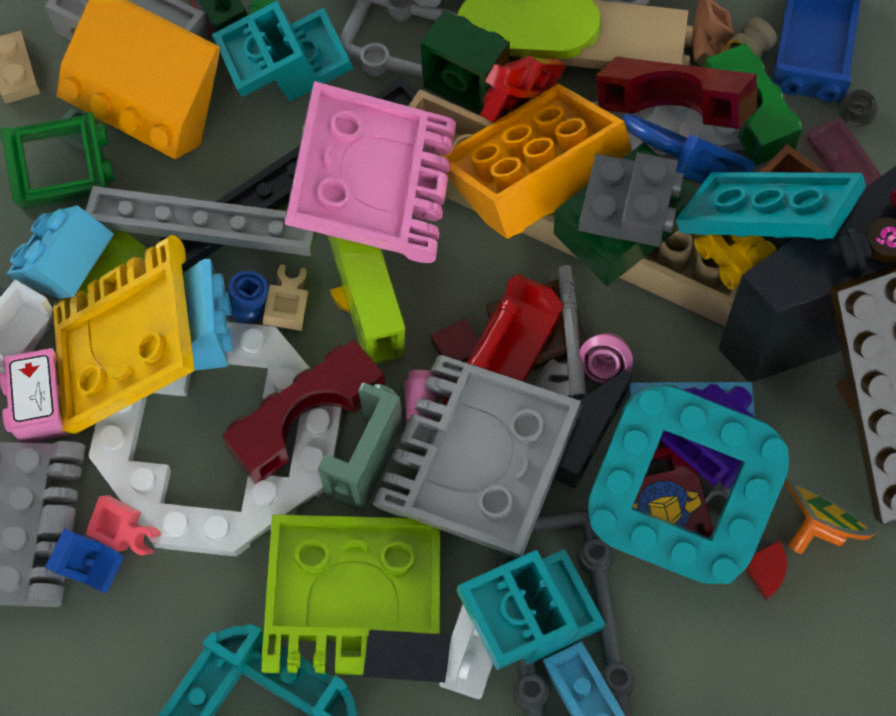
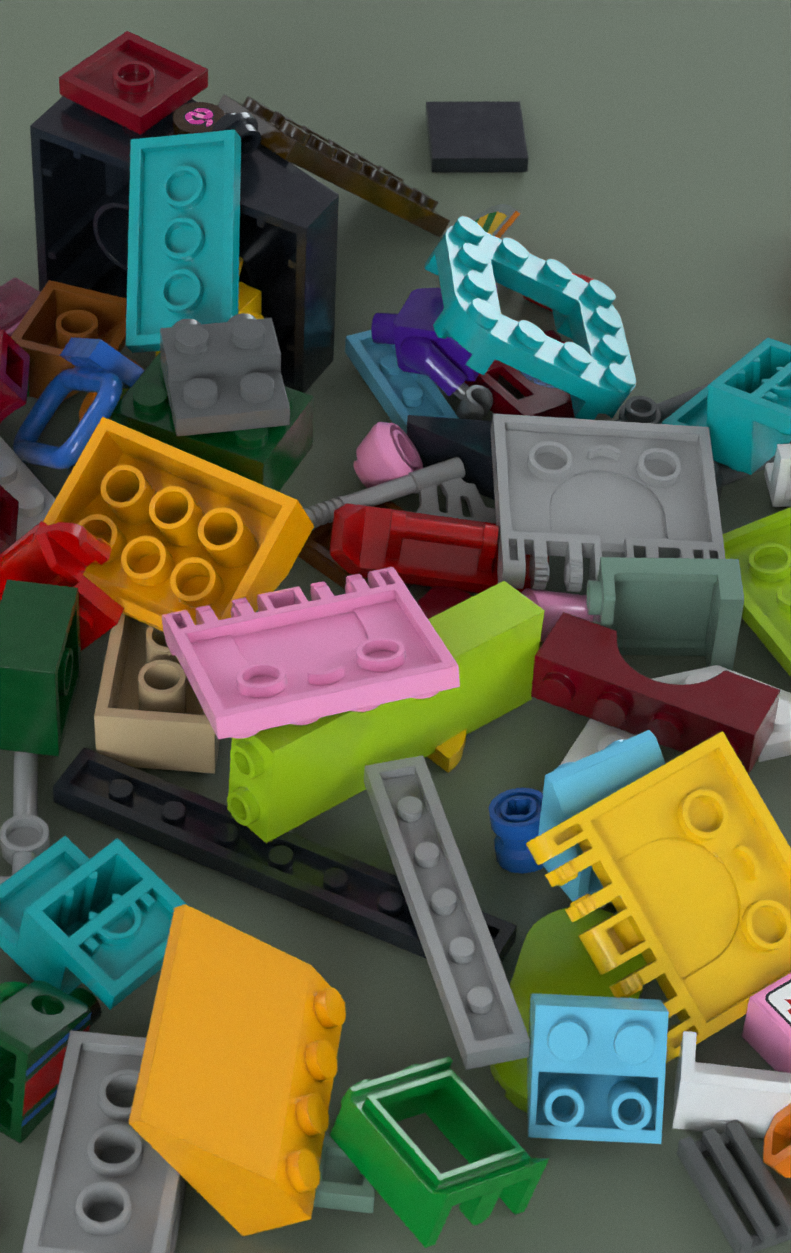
camera: 120 degrees left, 20 degrees down
(286, 301) = (471, 804): tan plate -> none

